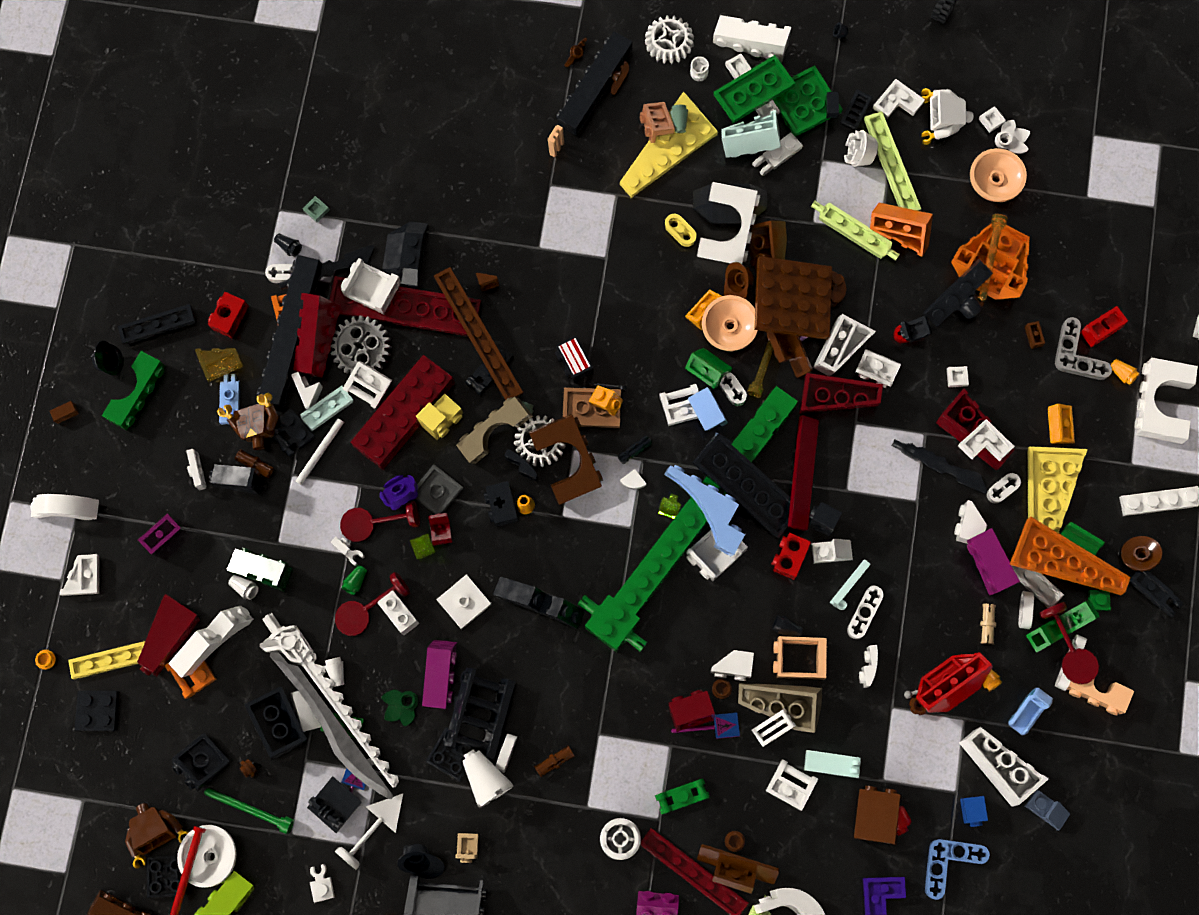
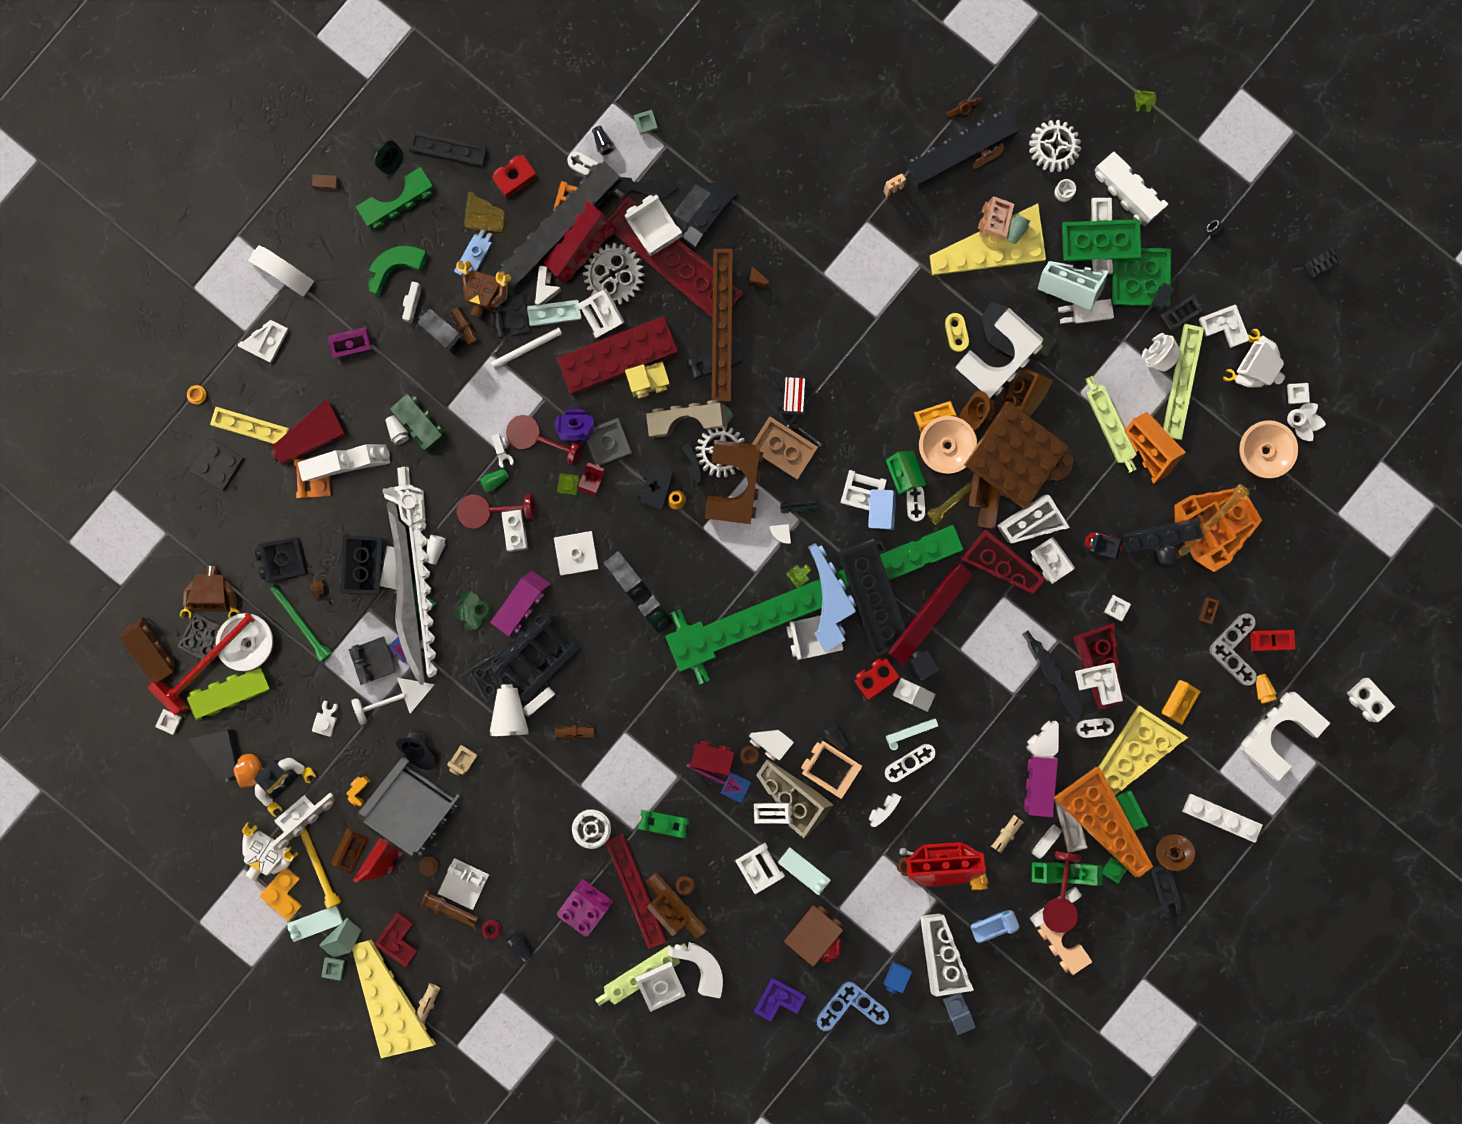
camera: 30 degrees right, 10 degrees up
(159, 442) = (392, 259): none -> green arch
(606, 399) = (798, 450): light orange bracket -> none

